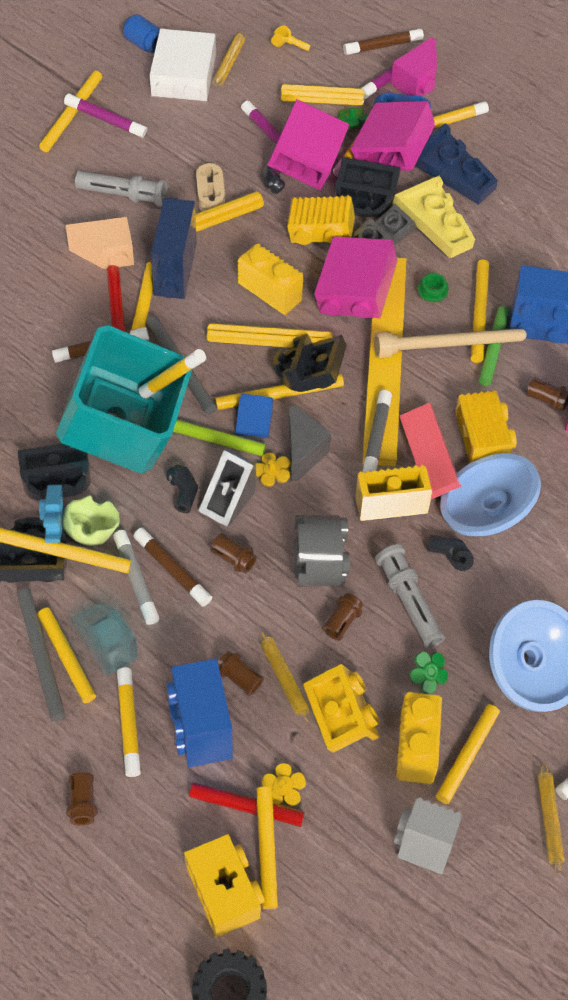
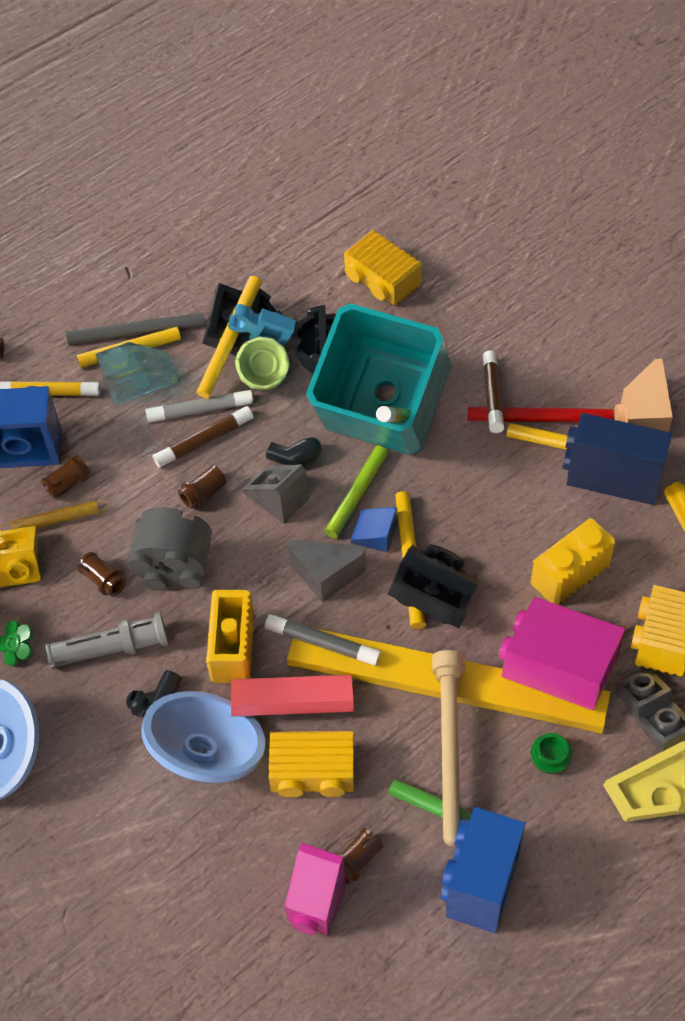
camera: 105 degrees right, 0 degrees up
(194, 384) = (465, 467): dark grey bar -> none
(260, 335) = (491, 559): yellow axle -> none
(272, 469) = (306, 533): yellow plant -> none
(480, 307) = (519, 809): yellow bar -> none

